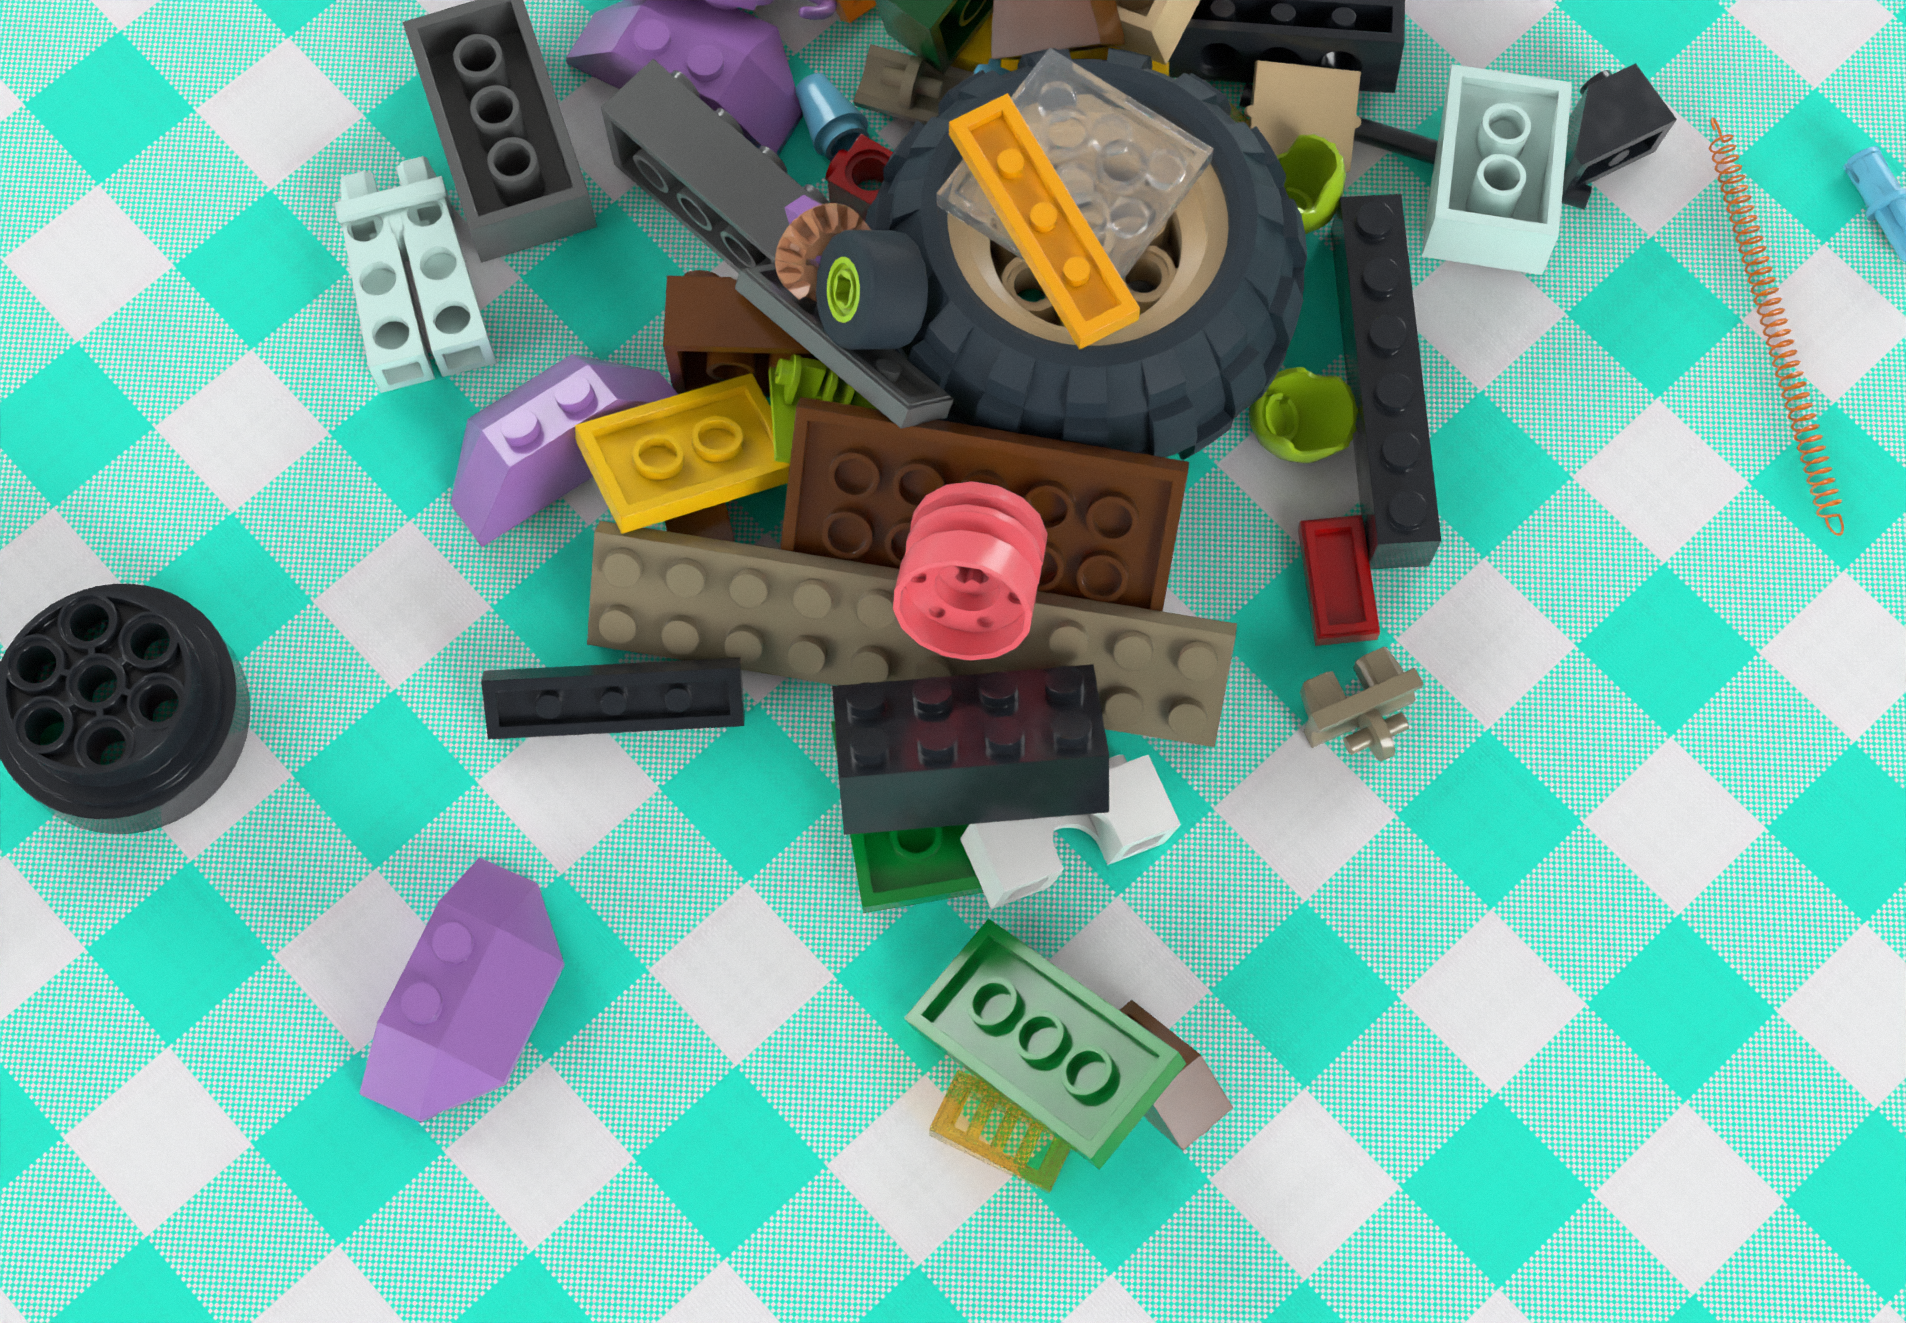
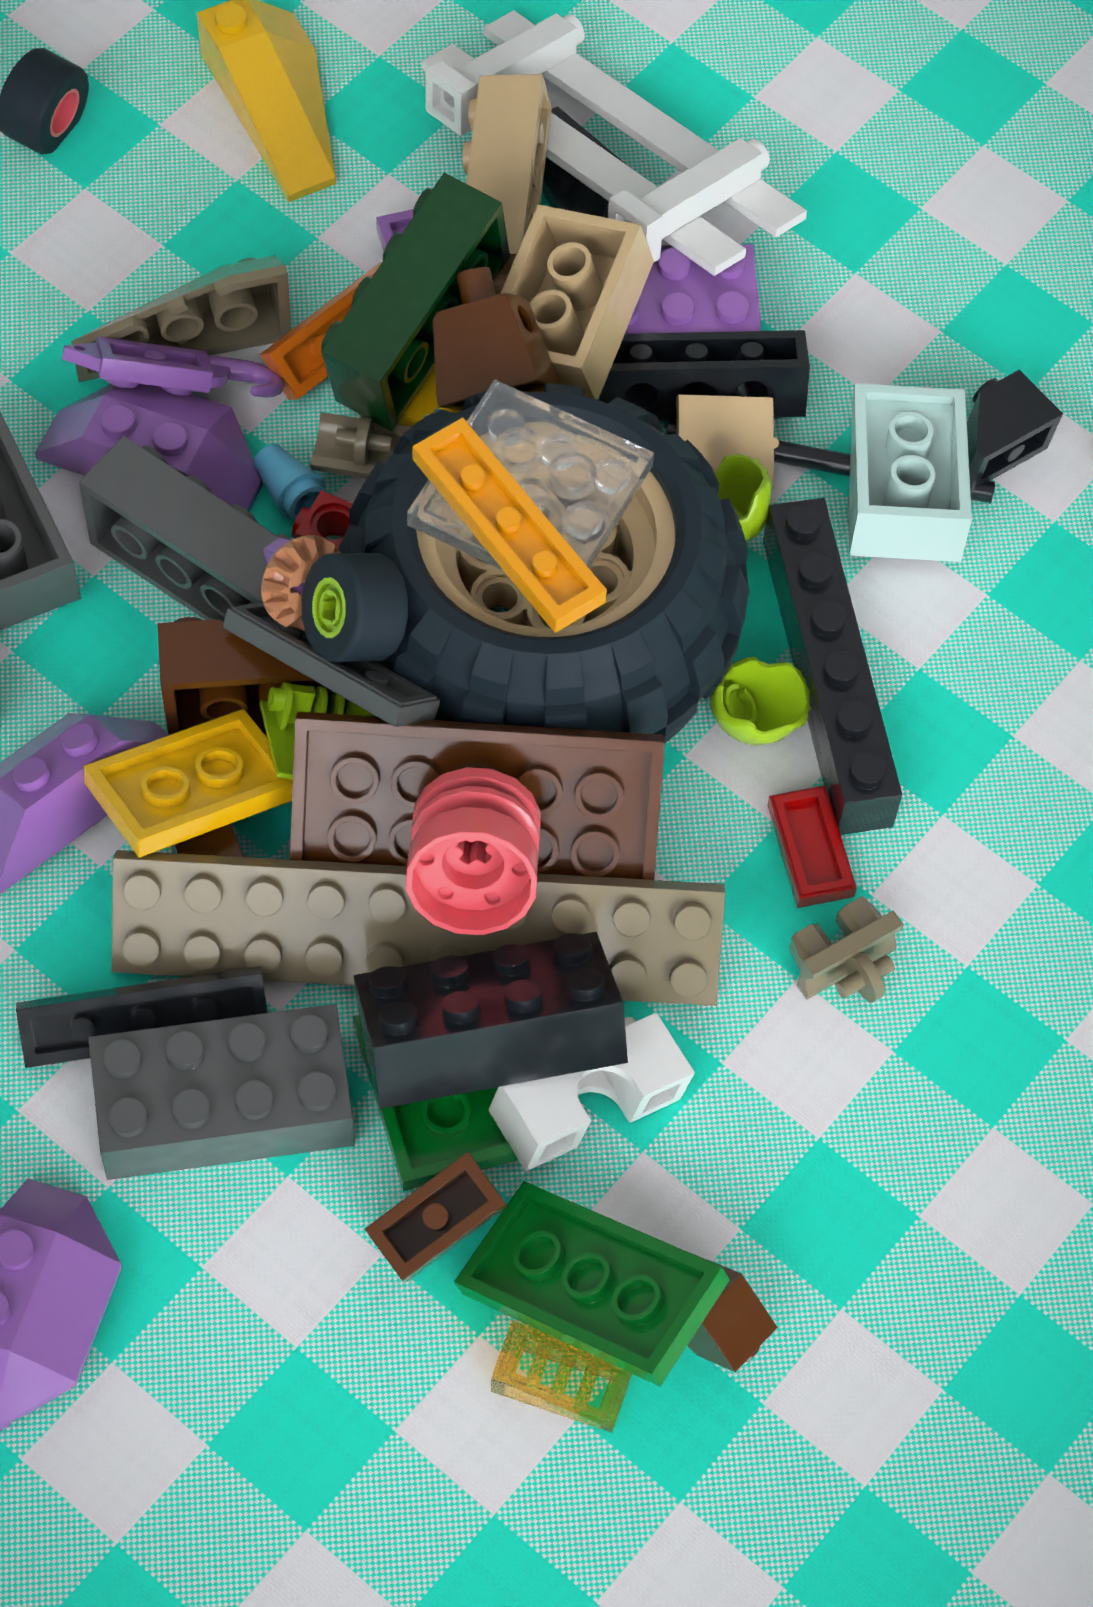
camera: 10 degrees left, 10 degrees down
(684, 789) = (221, 1091): none -> dark grey brick
(891, 953) = (436, 1217): none -> reddish brown brick

